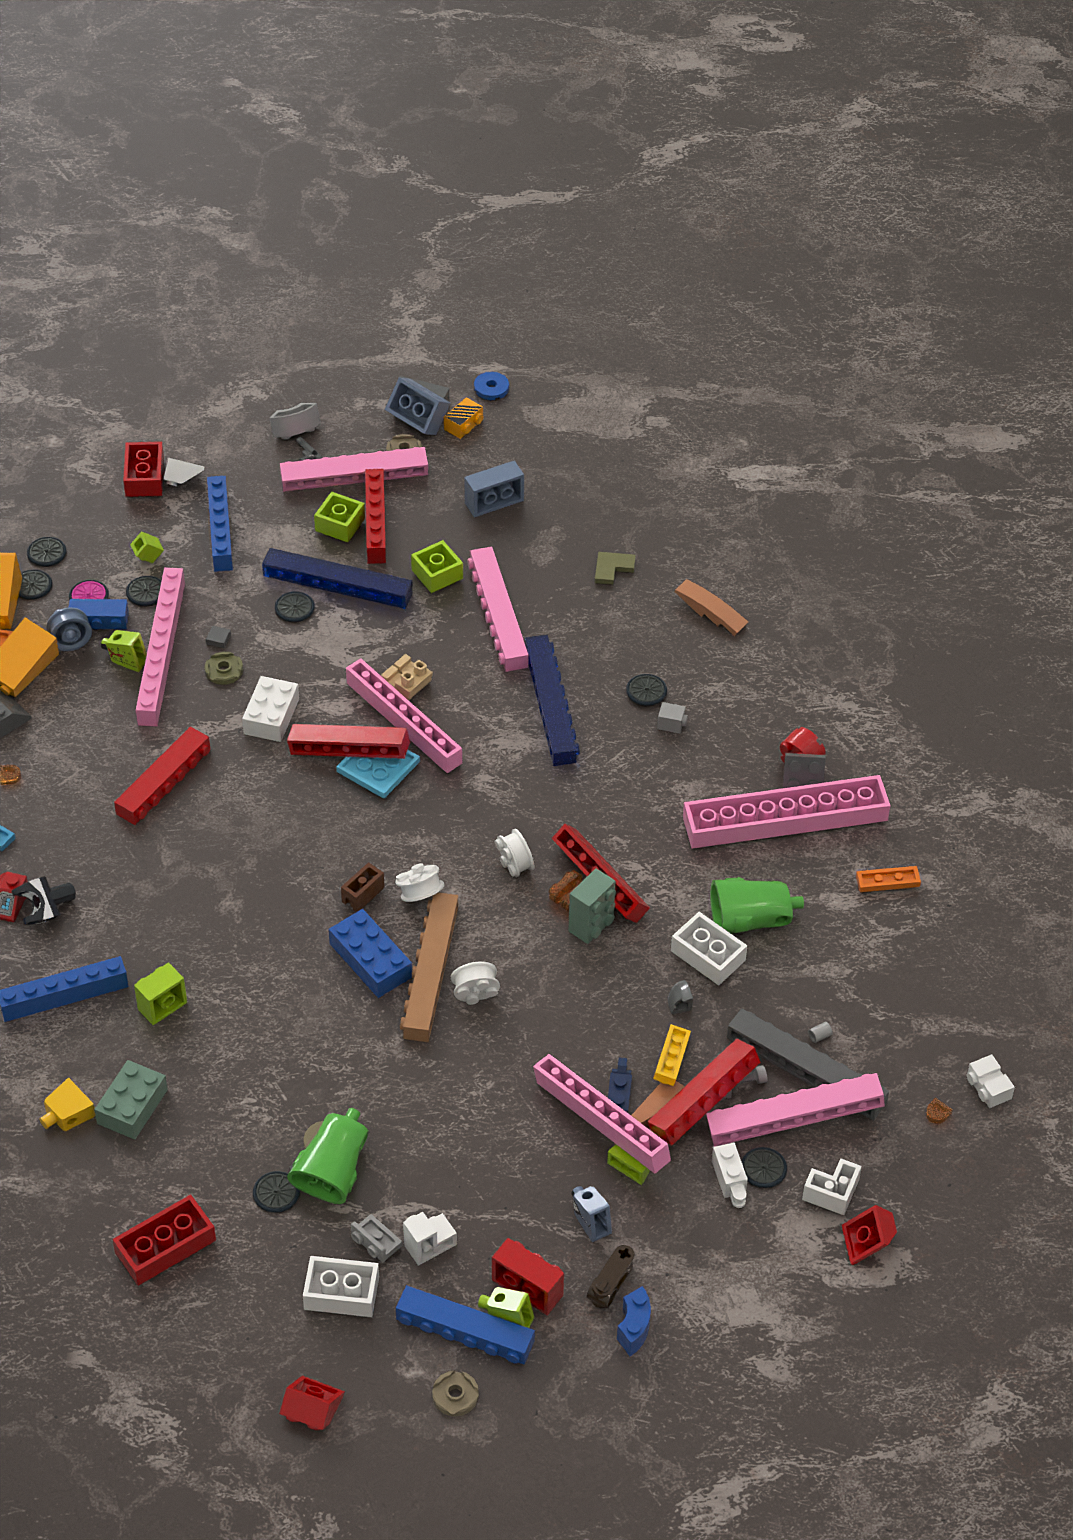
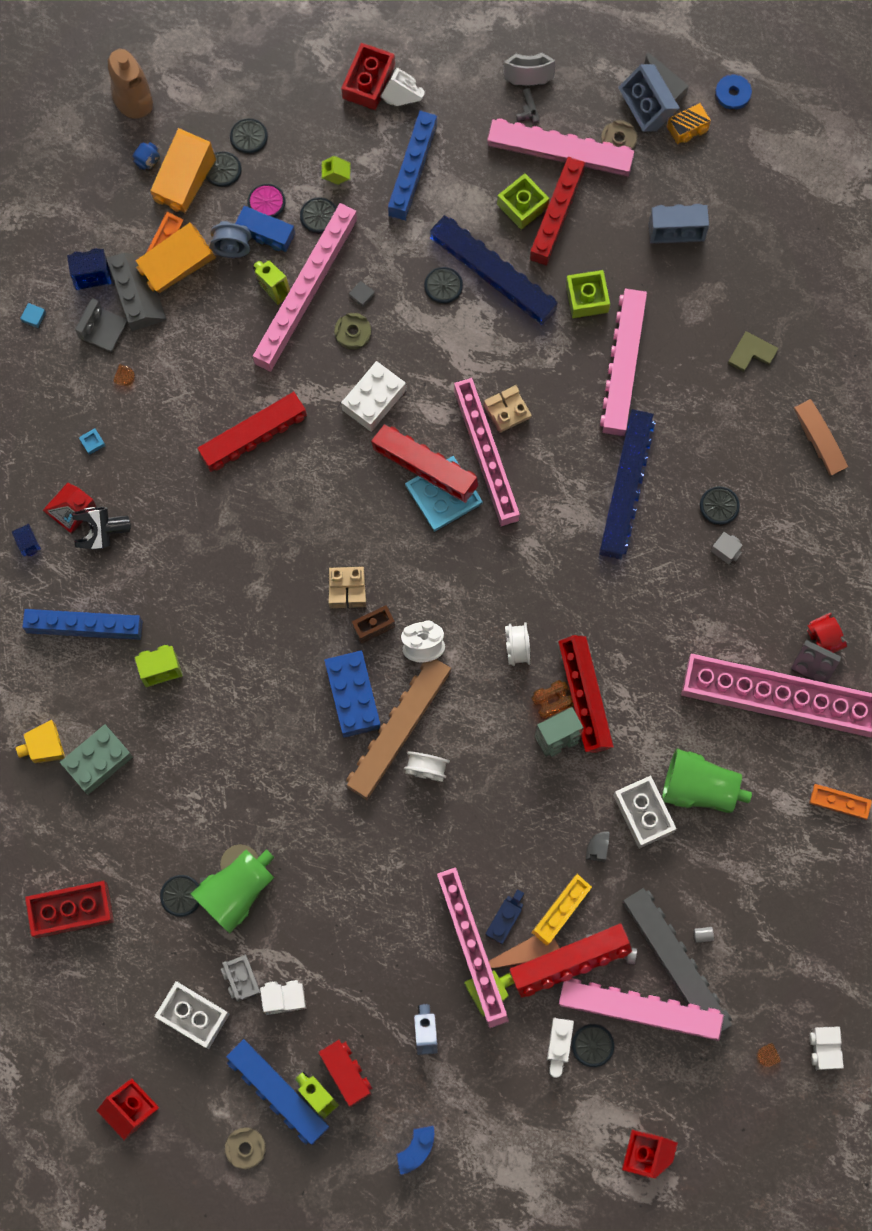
camera: 25 degrees right, 25 degrees up
(320, 866) = (350, 578): none -> tan hips
(611, 1277) = (408, 1106): dark brown piece -> none
(832, 1191) = (639, 1102): white brick -> none

